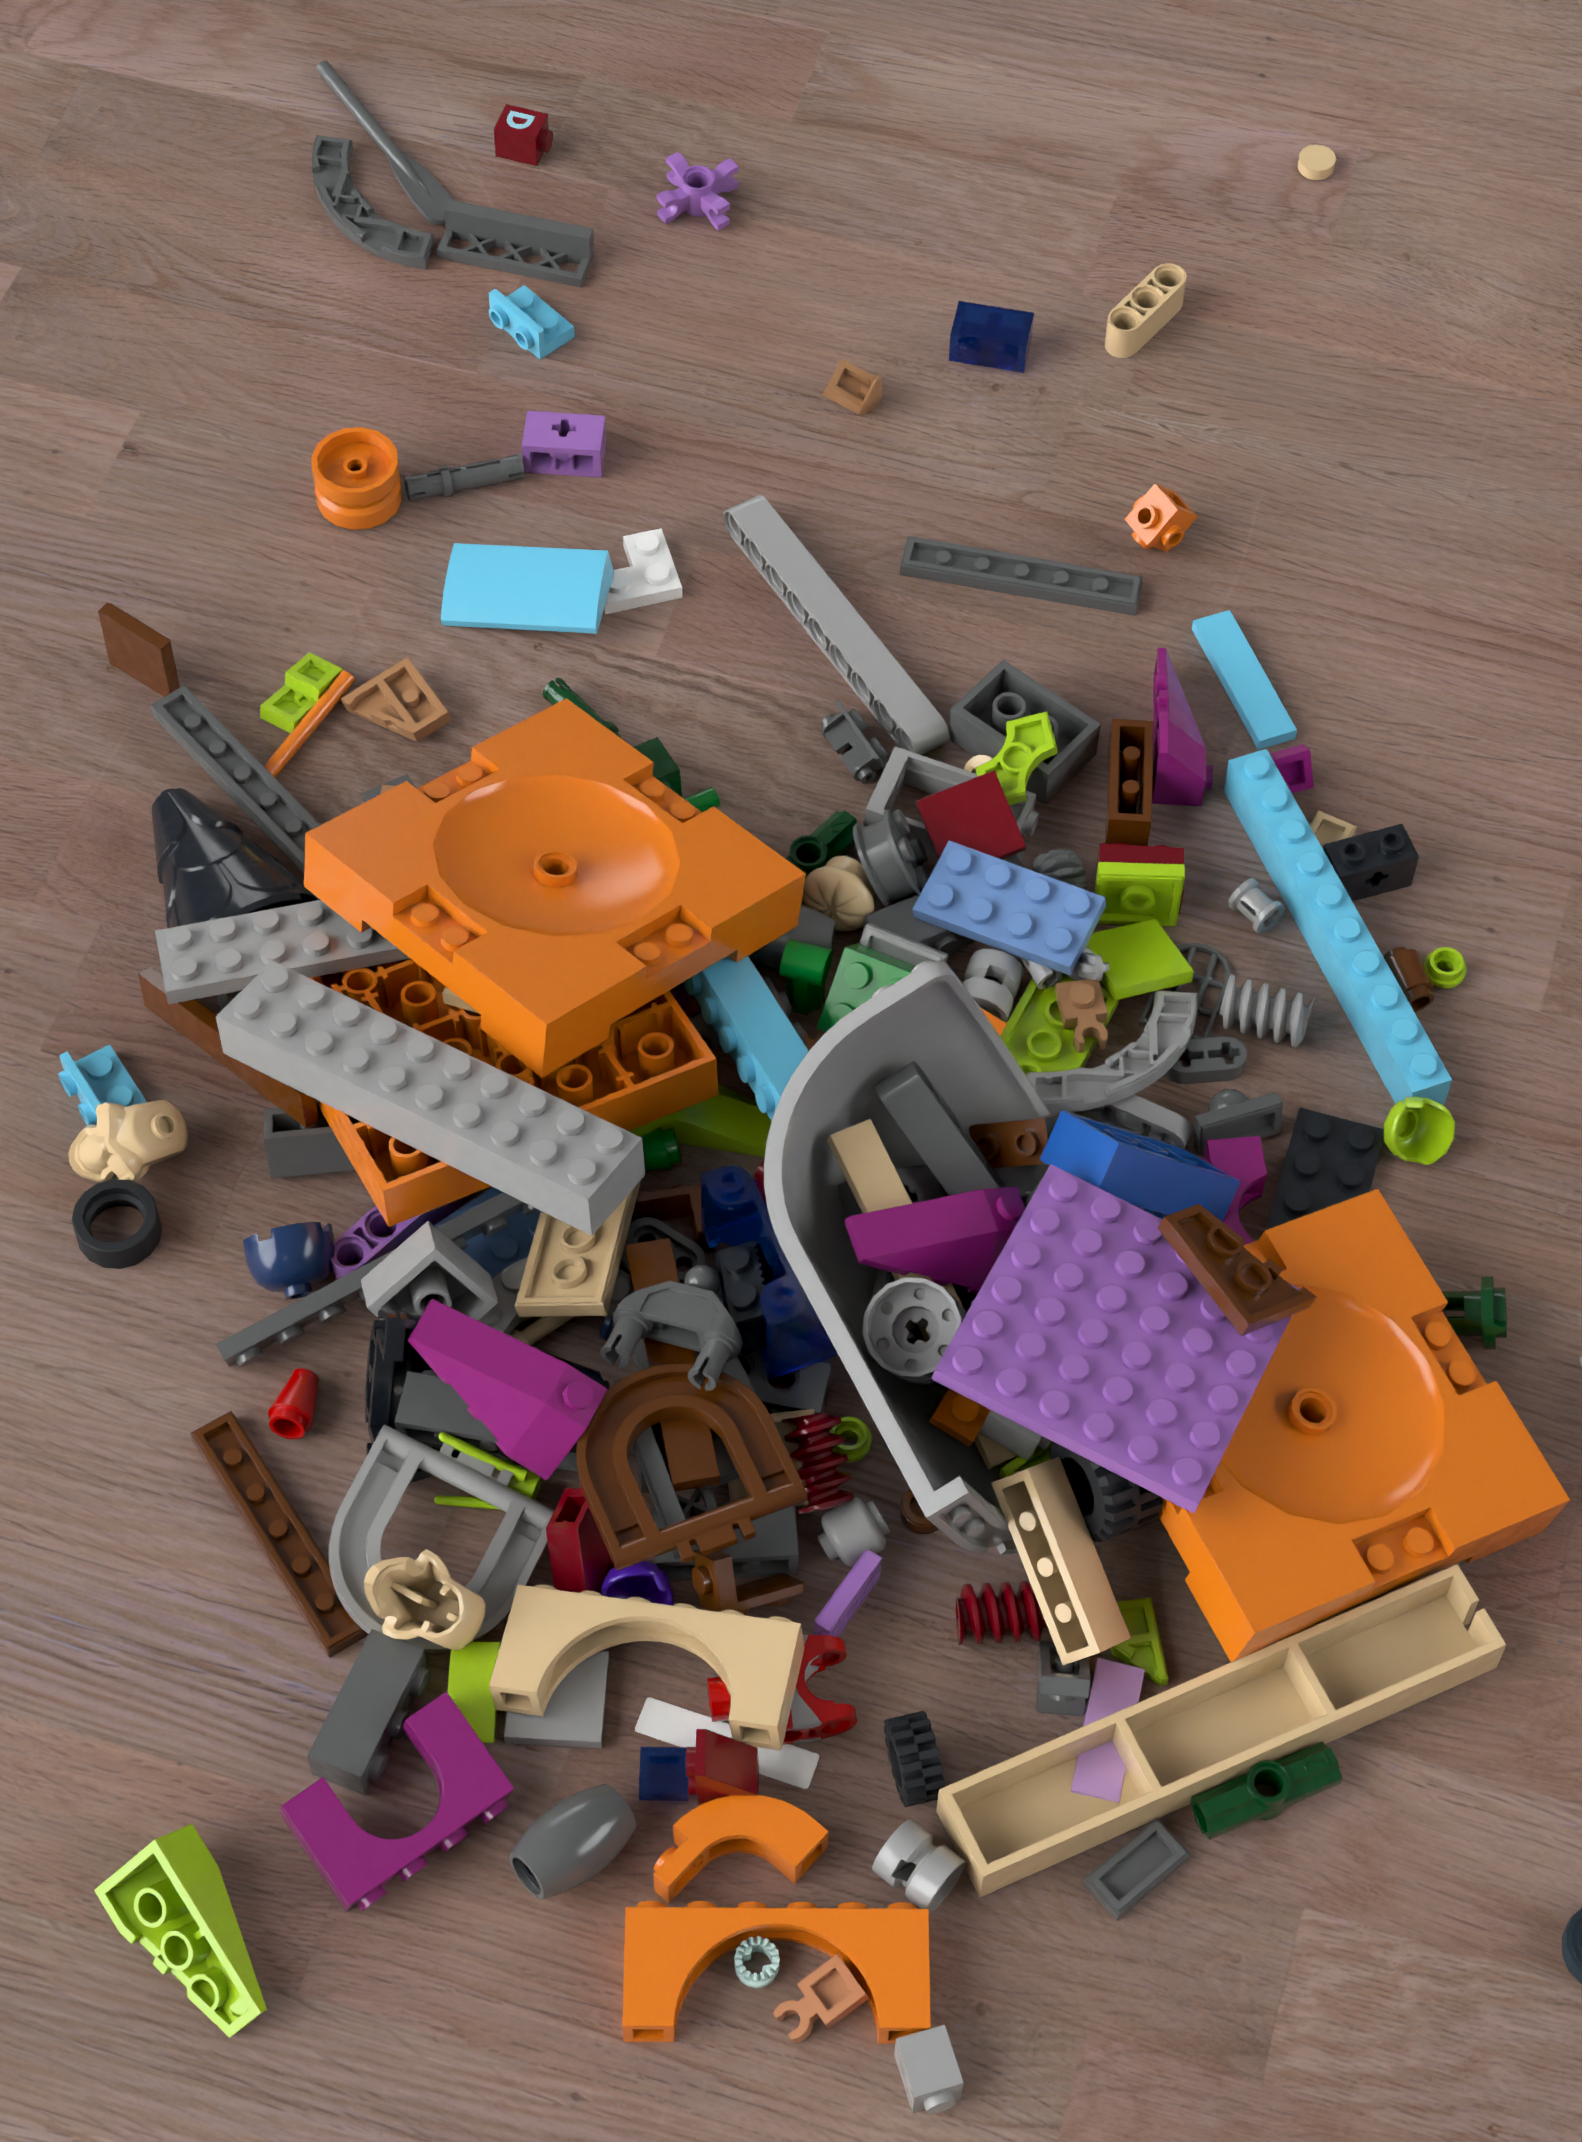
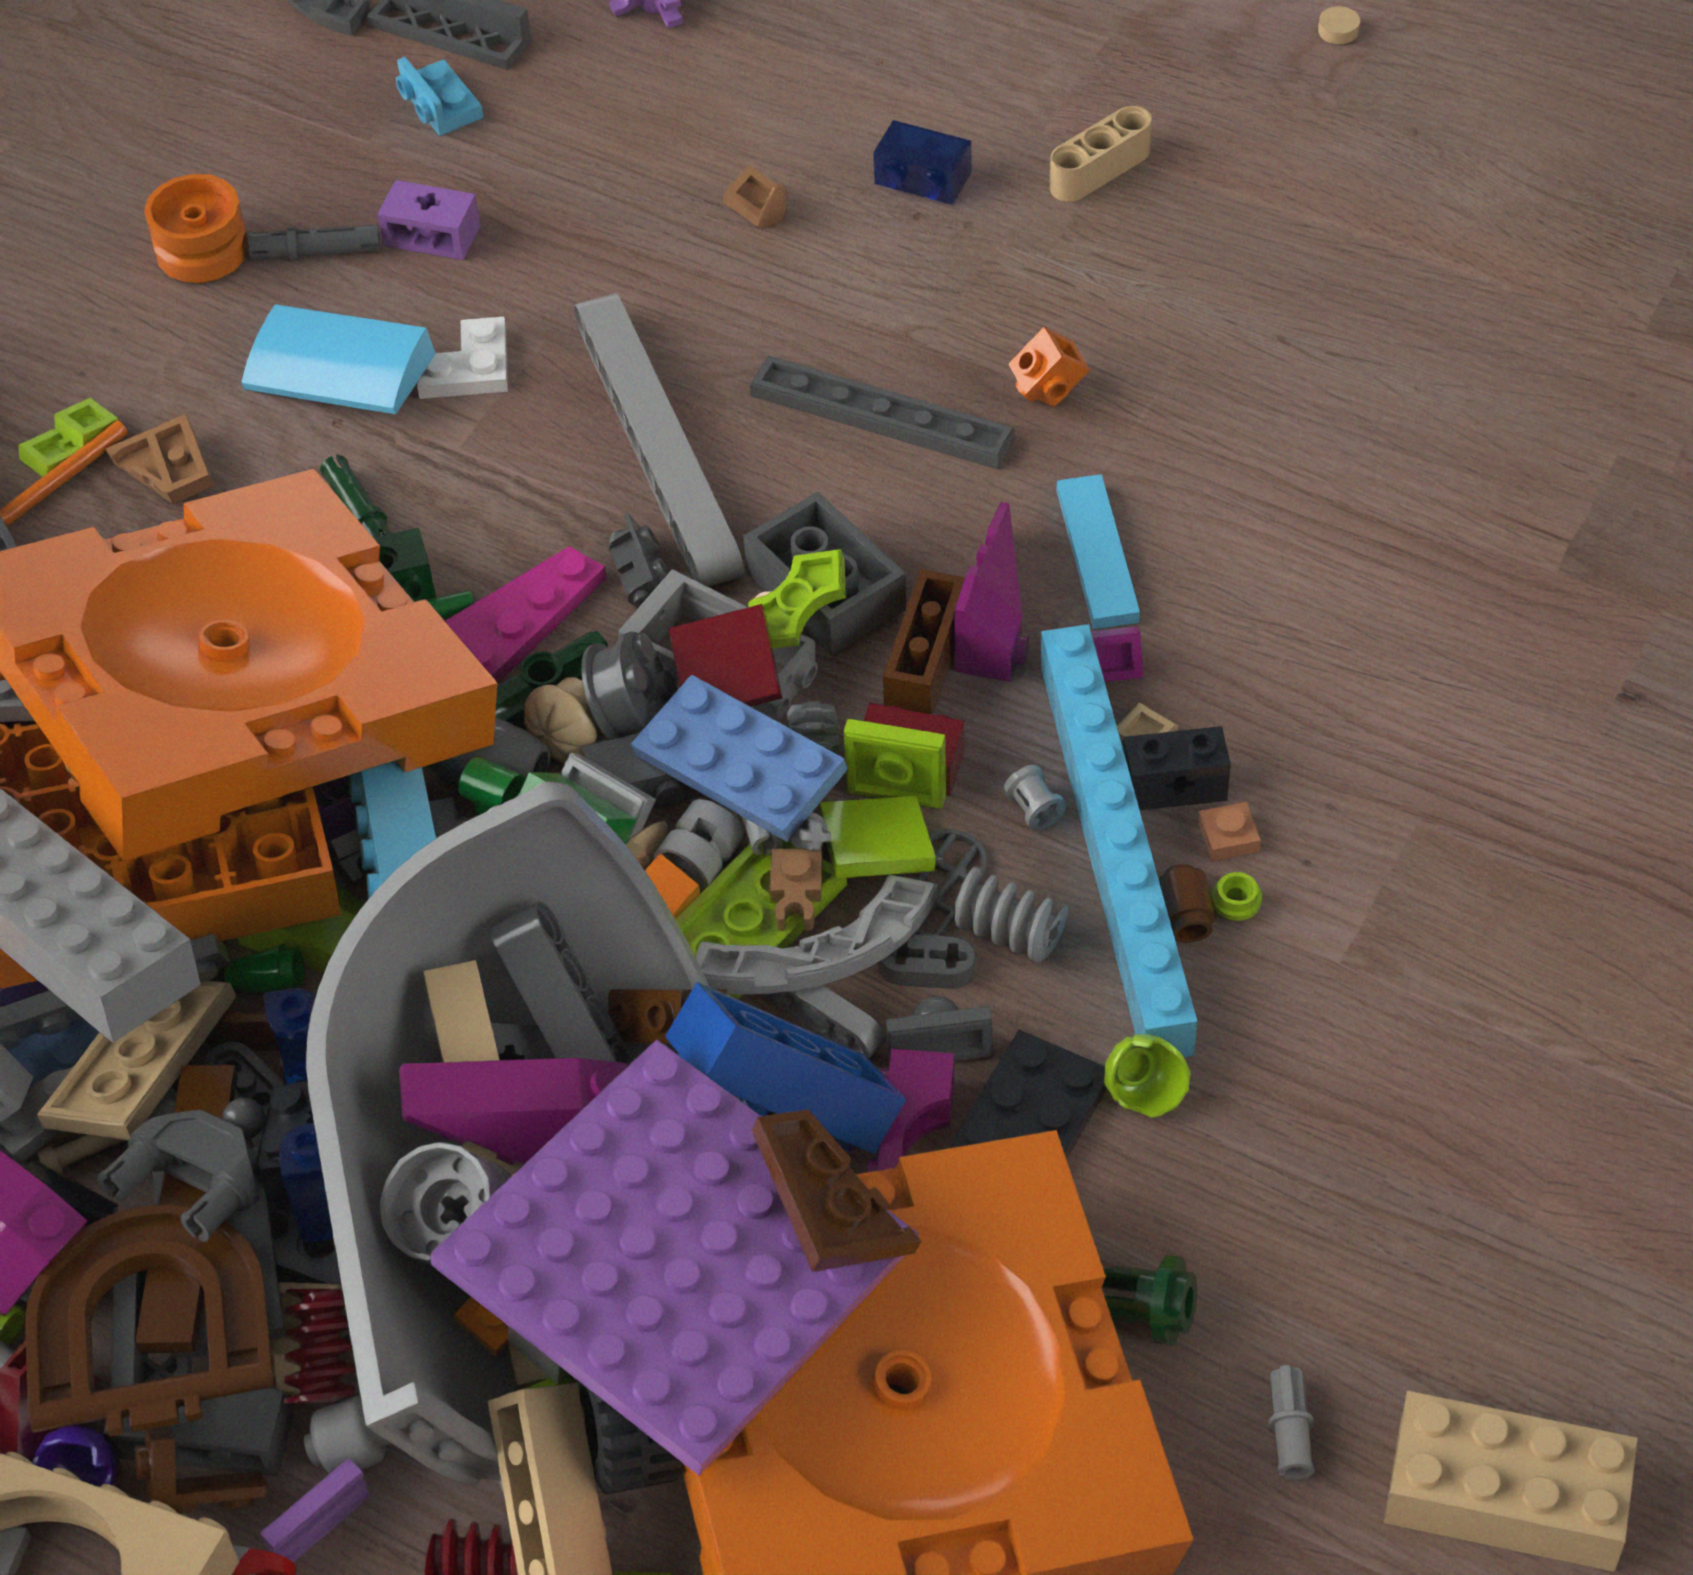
camera: 15 degrees right, 5 degrees down
(773, 789) = (526, 610): none -> dark pink wing
(1422, 912) = (1229, 831): none -> nougat plate

